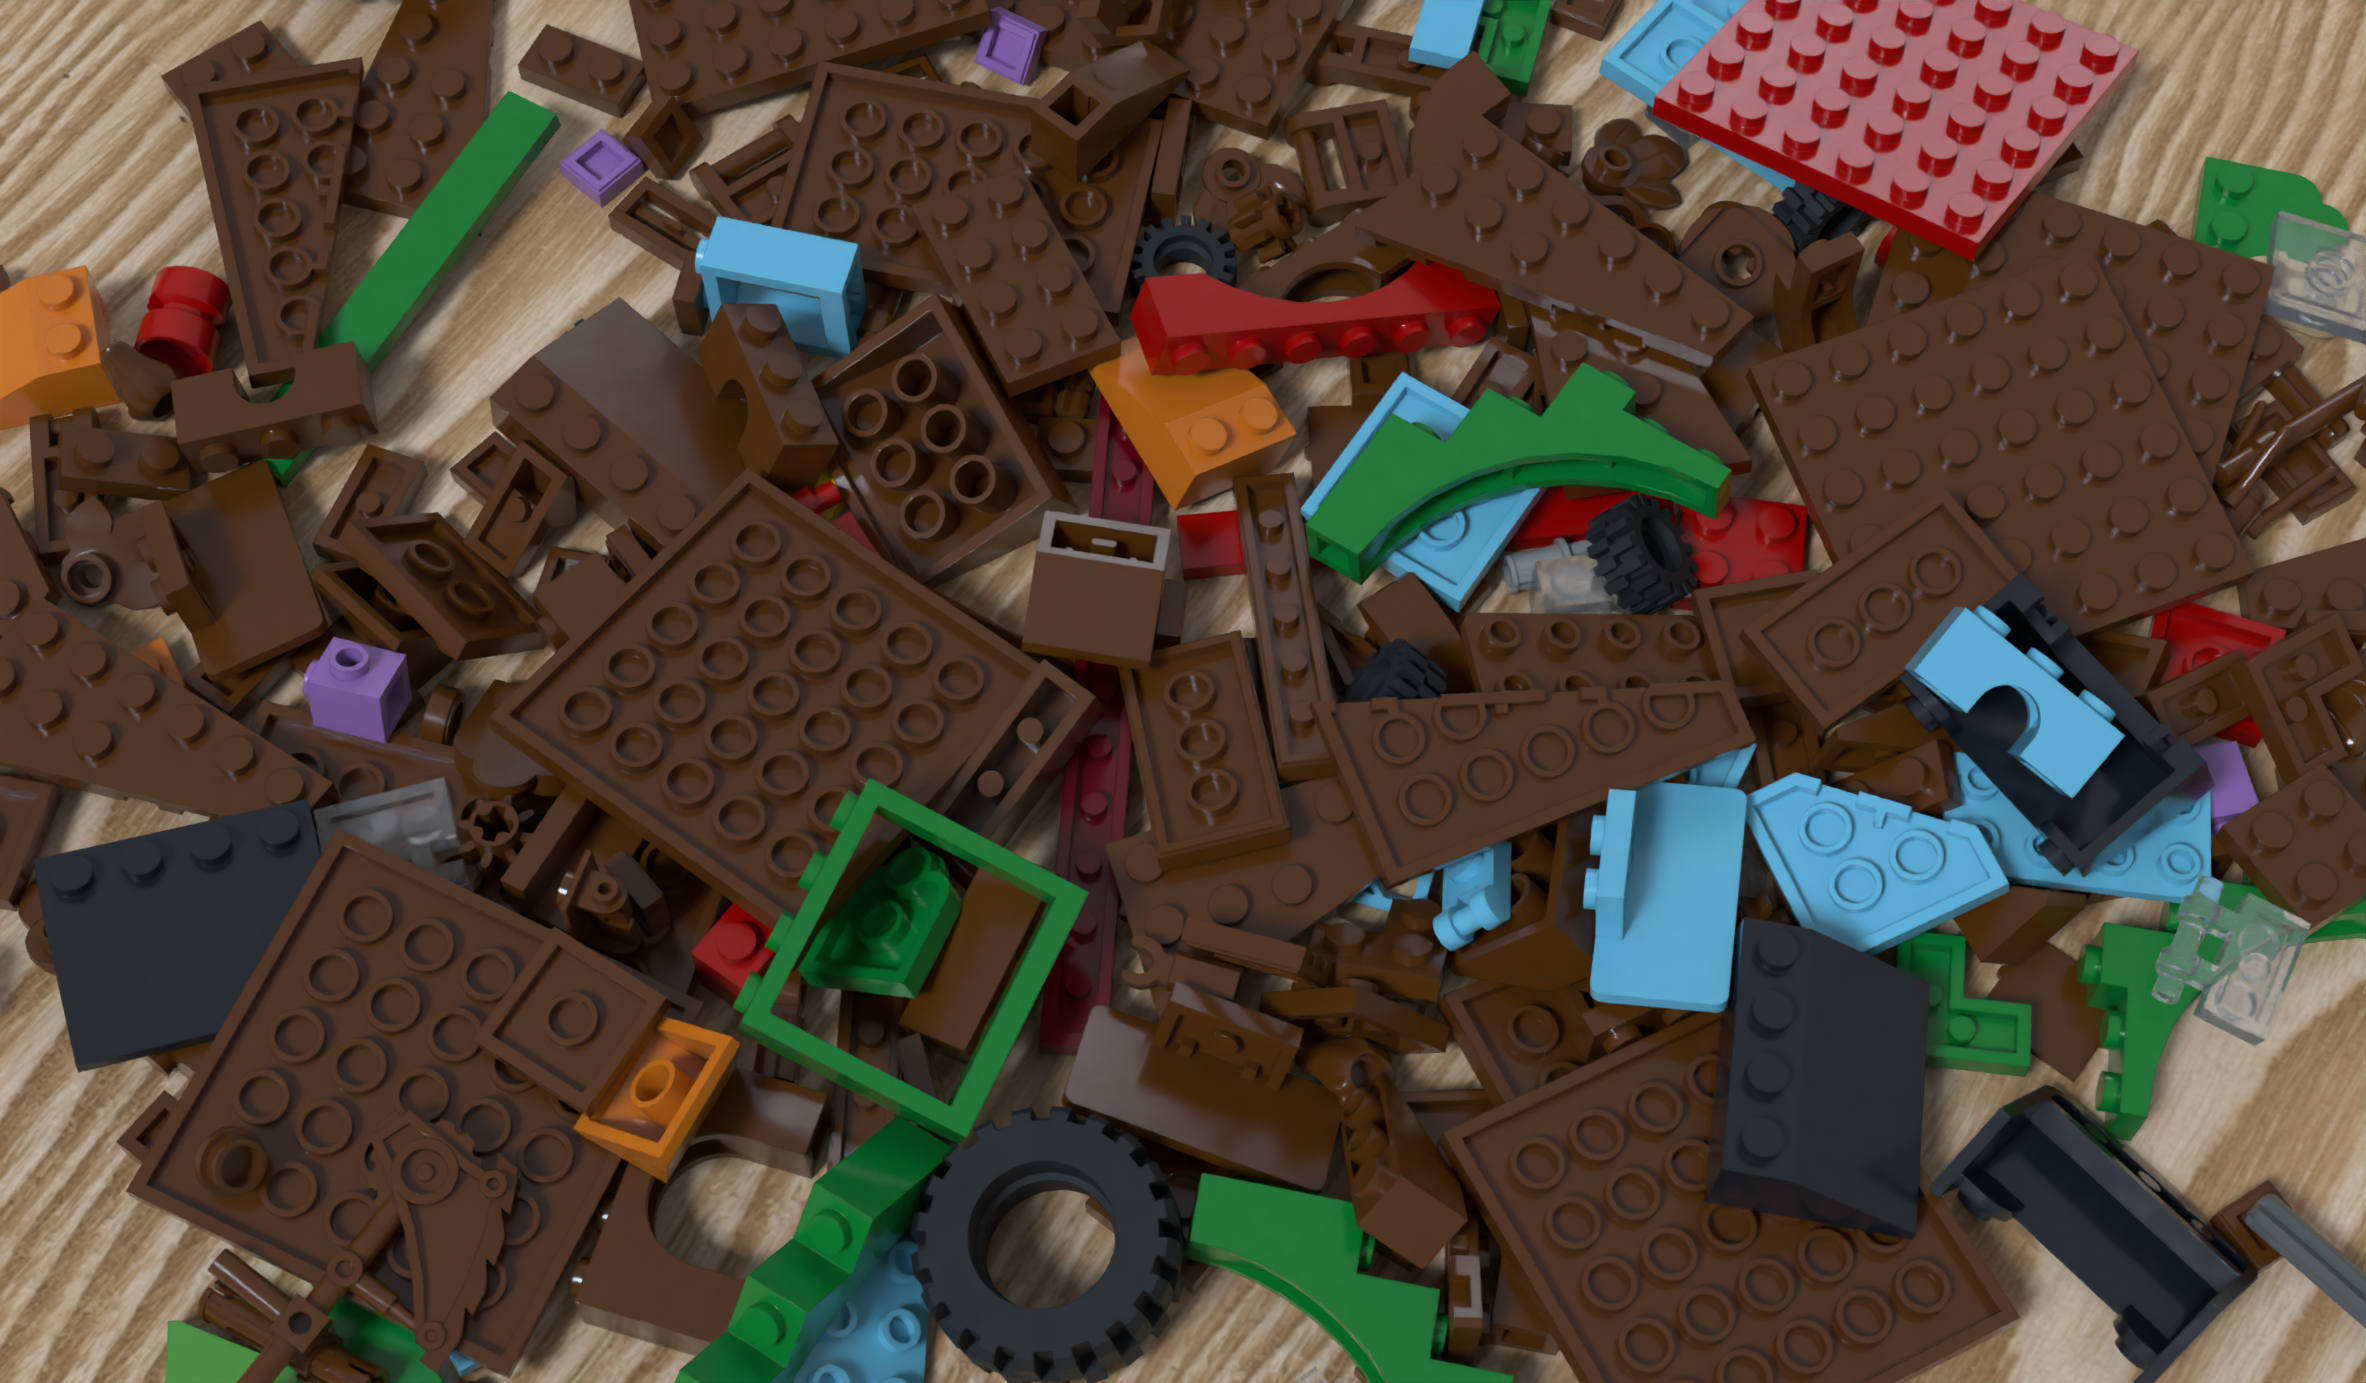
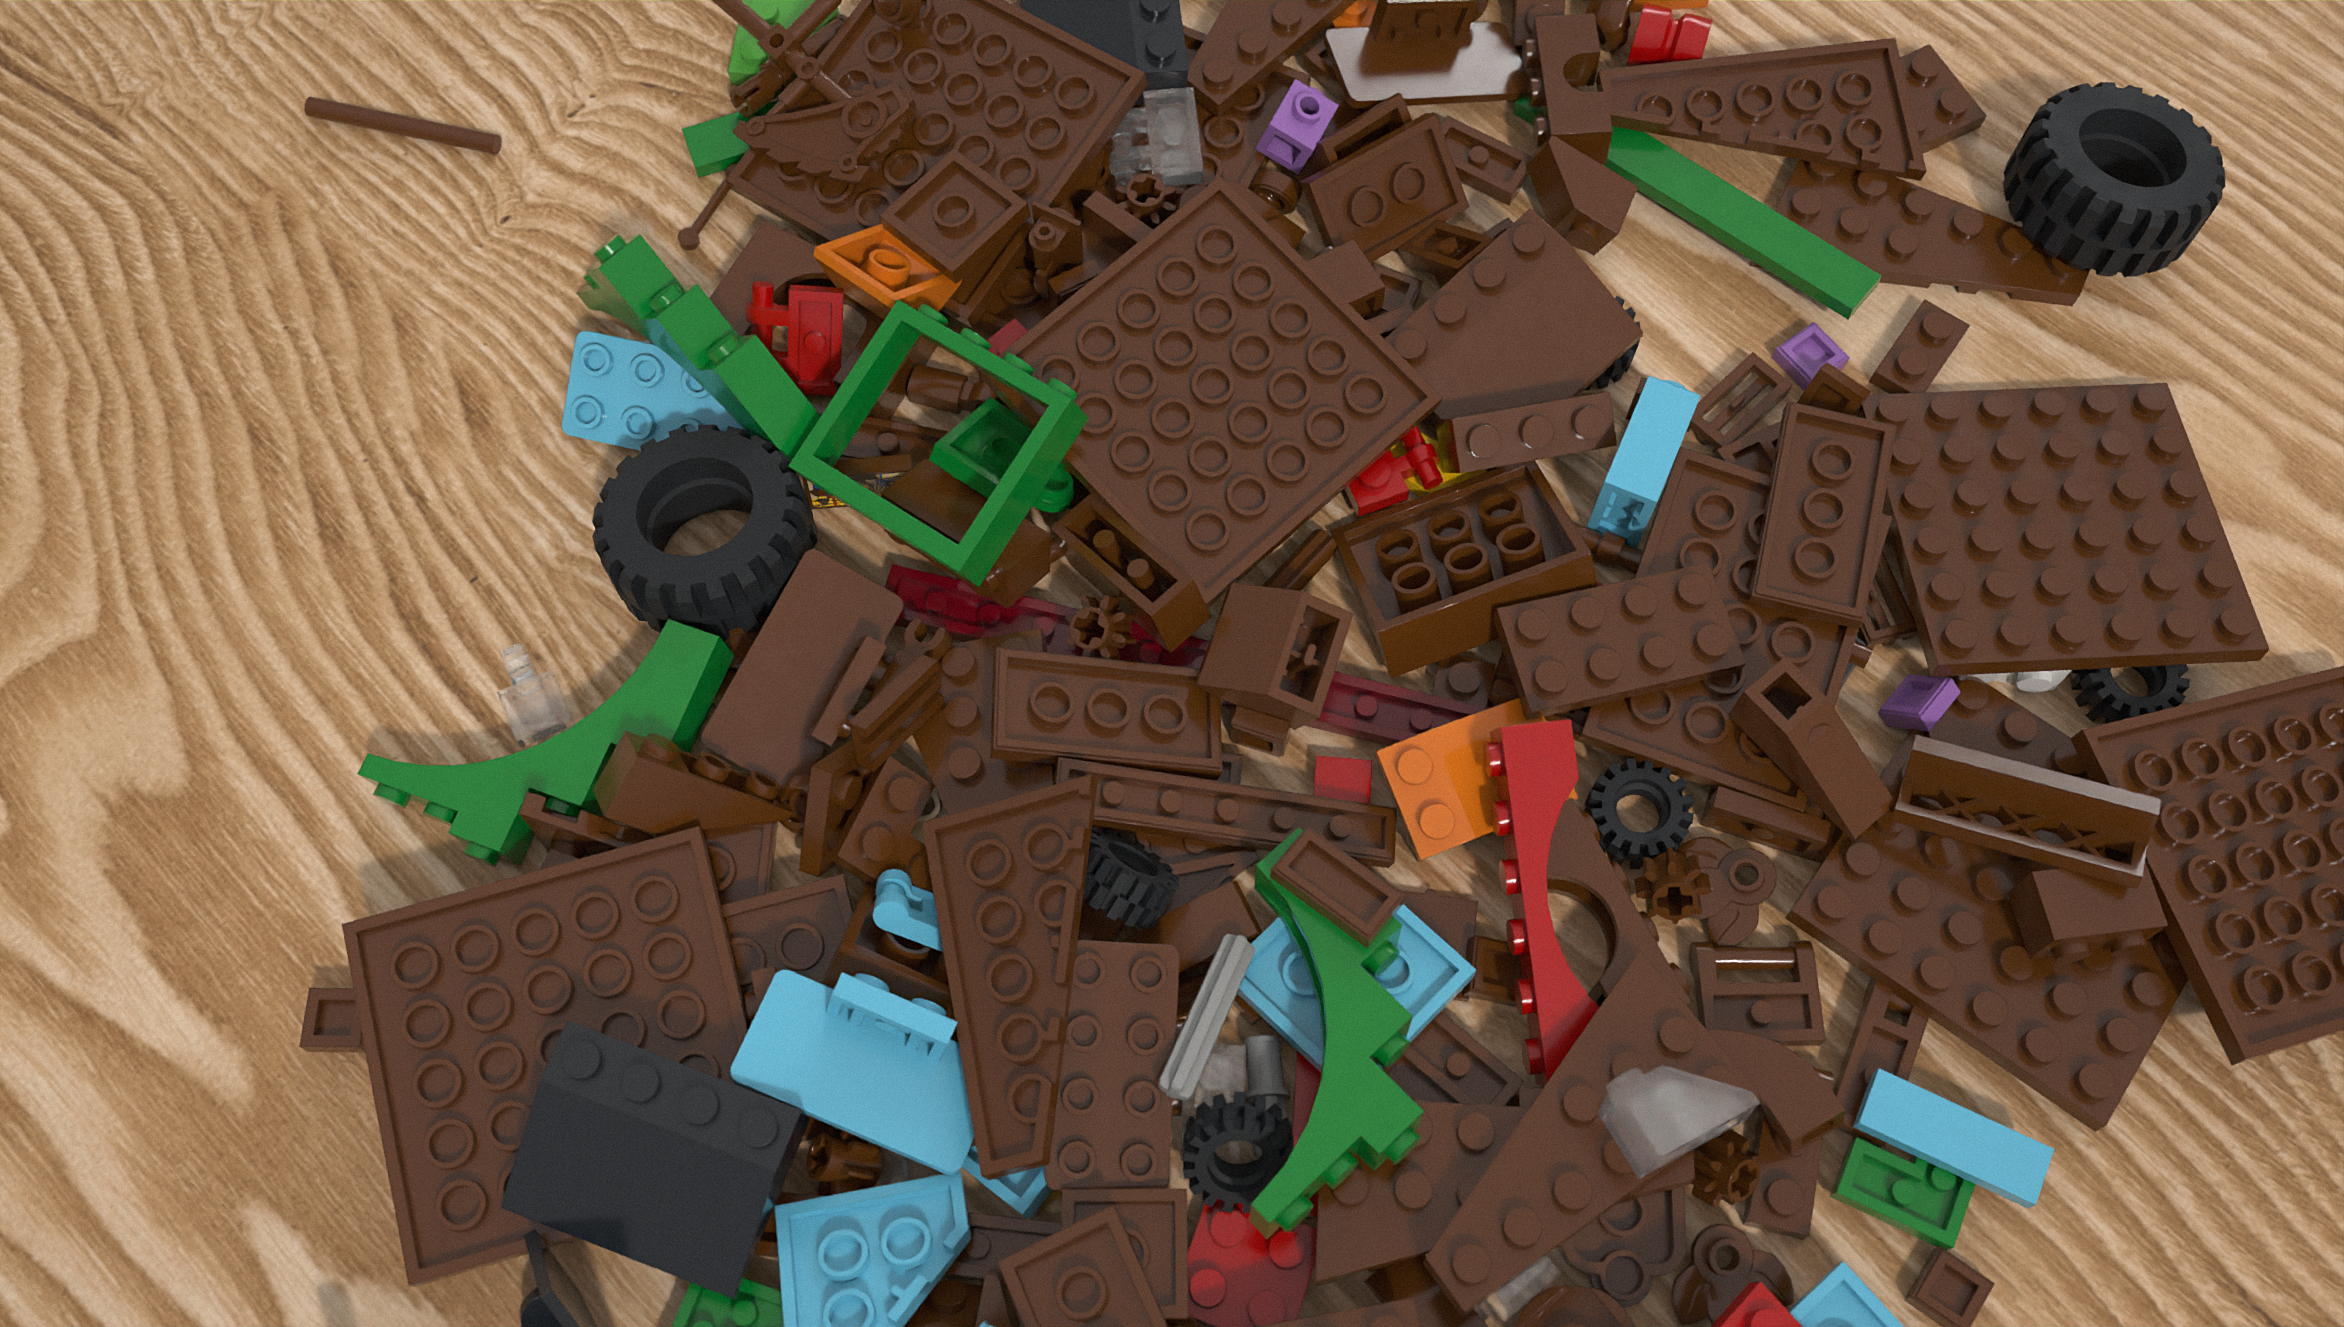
camera: 100 degrees right, 5 degrees up
(425, 388) = (1579, 195): none -> reddish brown slope
(738, 1198) = (813, 332): none -> red plate
(829, 115) = (1822, 515): none -> reddish brown tile
(1110, 769) = (1105, 614): none -> reddish brown gear
(1368, 471) = (1337, 886): none -> reddish brown tile
(1520, 590) = (1206, 1017): none -> light grey axle
(1537, 163) = (1669, 1114): none -> clear slope

